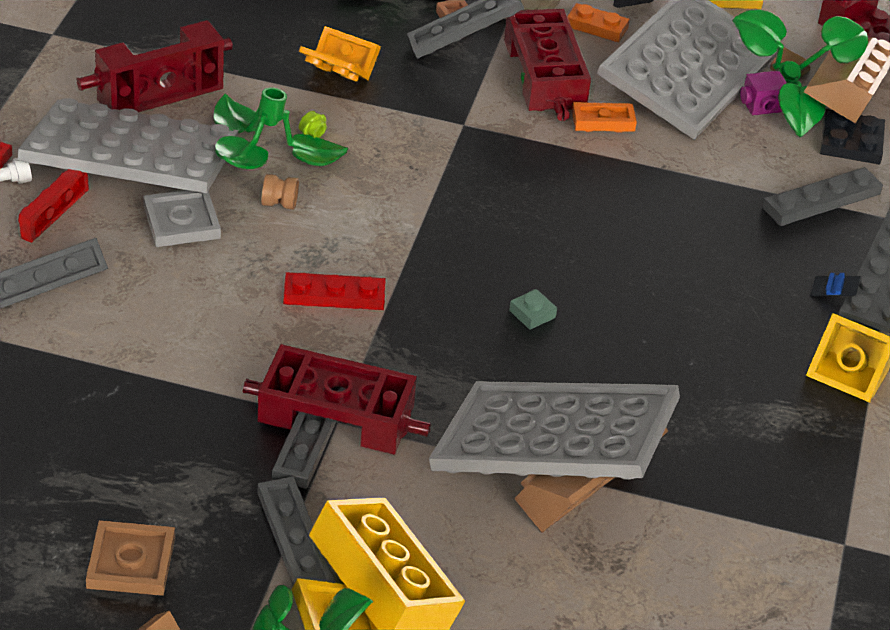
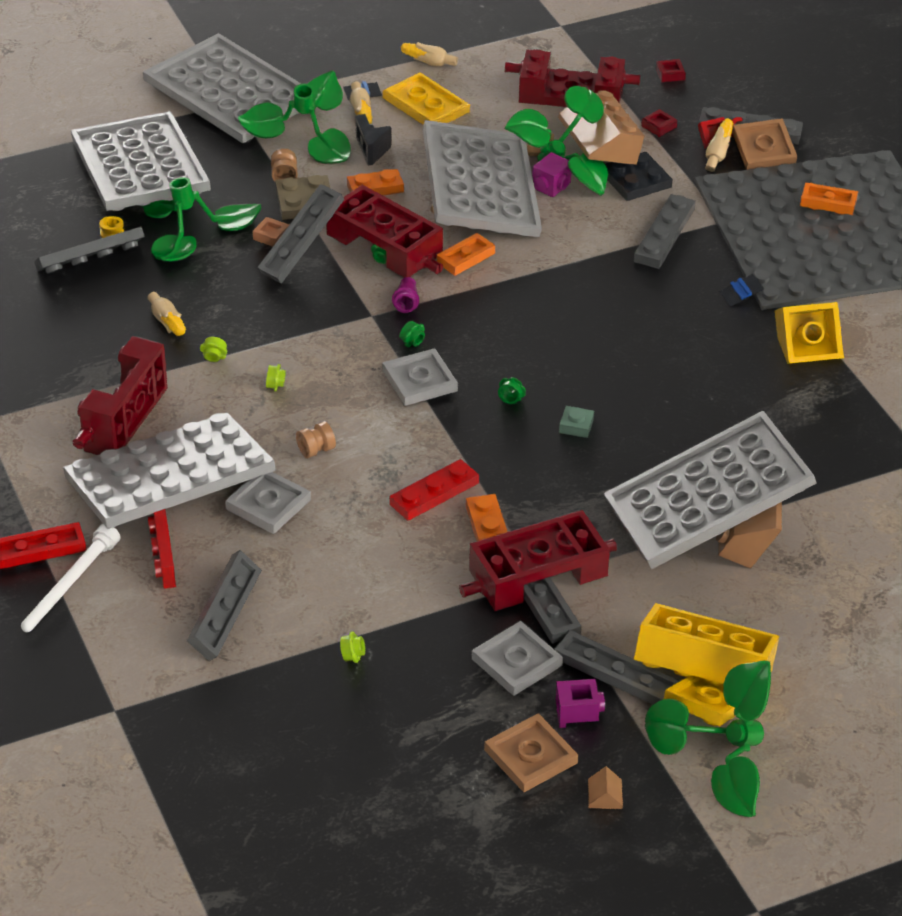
camera: 35 degrees left, 0 degrees up
(95, 373) = (352, 647): none -> lime plate
(221, 471) = (517, 658): none -> light grey plate
(222, 541) = (578, 701): none -> magenta brick
(271, 110) = (258, 379): green plant -> none
(289, 30) = (167, 314): none -> tan piece
(291, 77) = (214, 349): none -> lime plate
(343, 54) = (236, 307): light orange bracket -> none
(350, 338) = (485, 516): none -> orange plate
(435, 192) = (420, 376): none -> light grey plate
(473, 155) = (412, 334): none -> green plate
(503, 248) = (510, 395): none -> green plate
(505, 122) = (406, 296): none -> magenta cone

